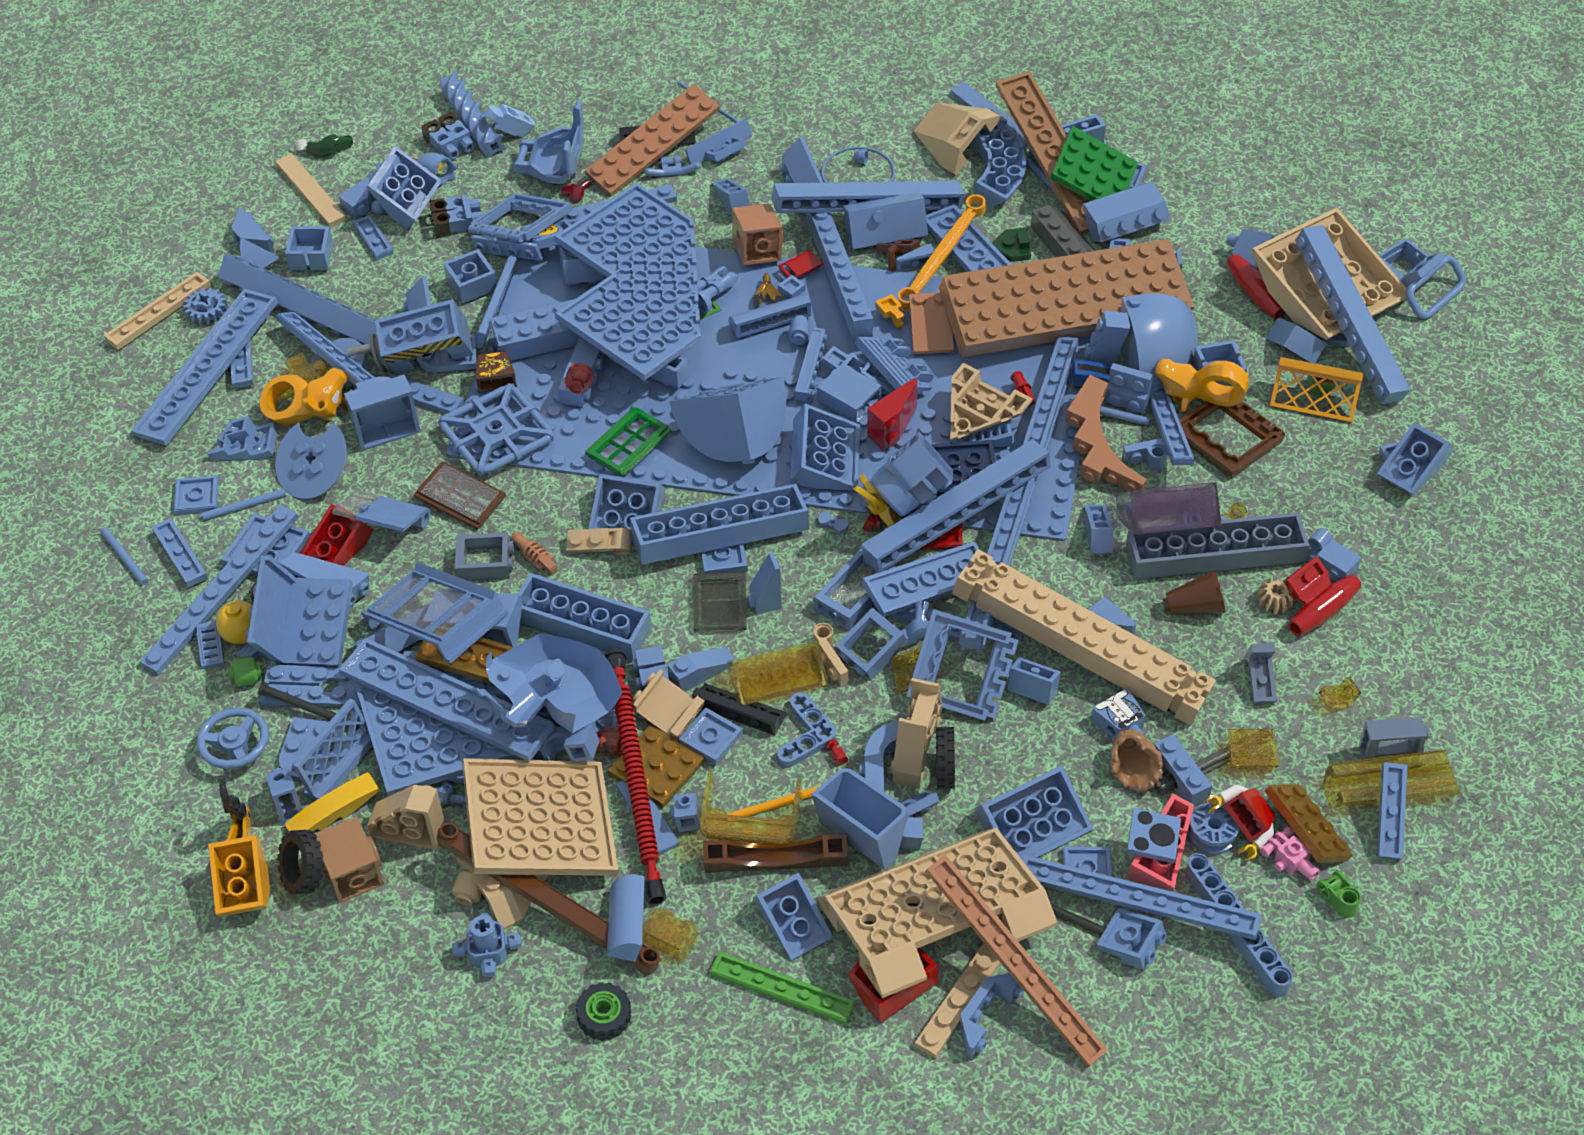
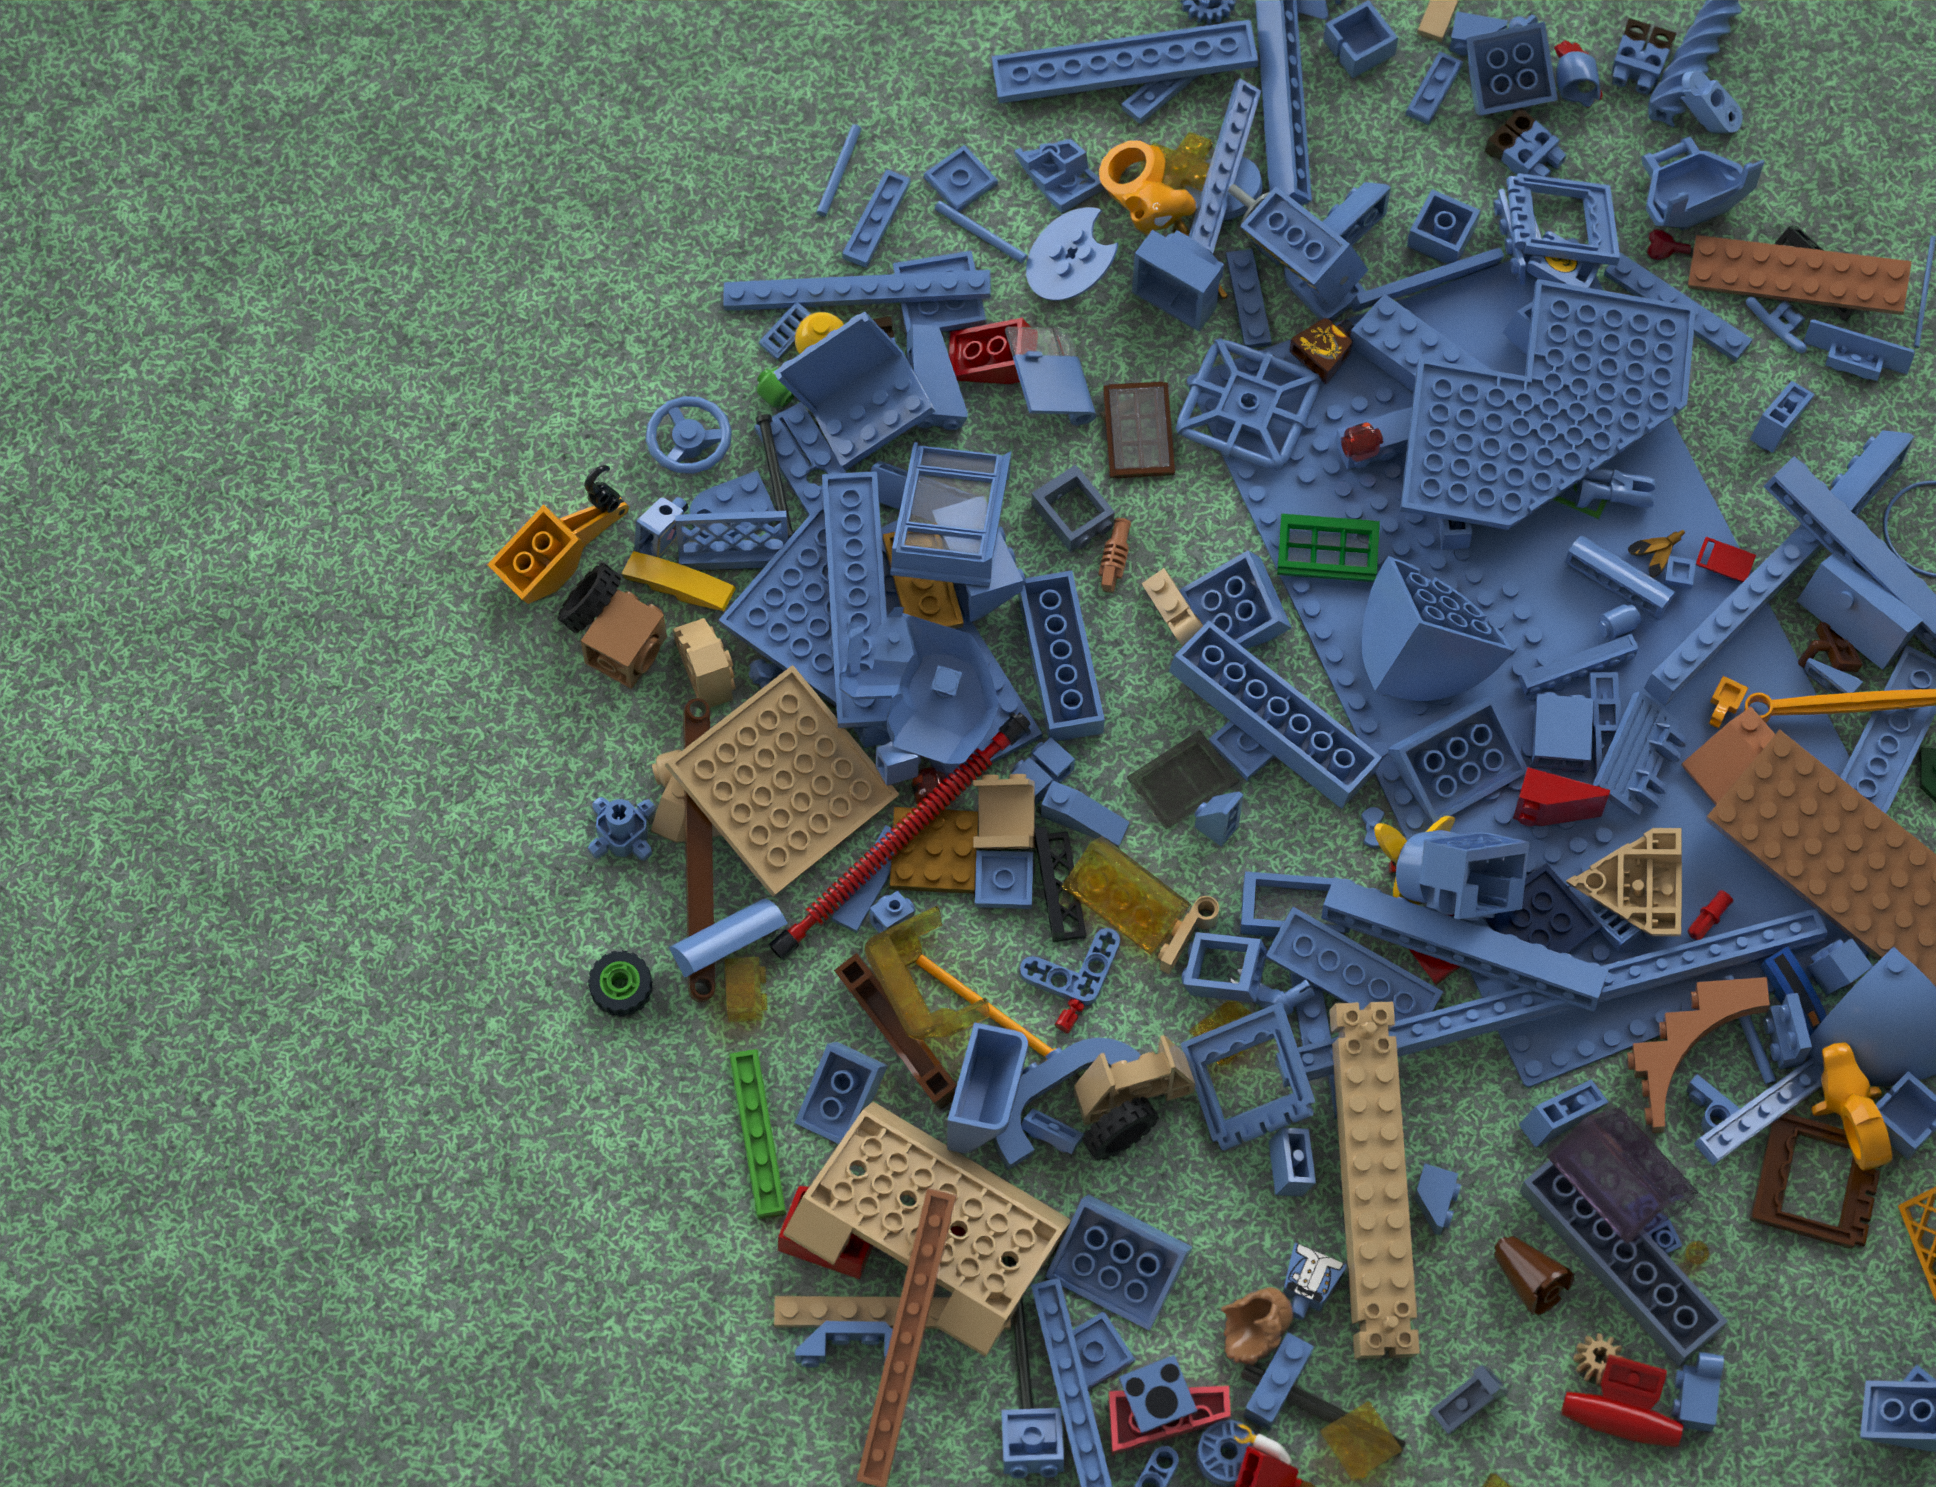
camera: 55 degrees right, 15 degrees up
(757, 234) = (1727, 484): nougat brick -> none

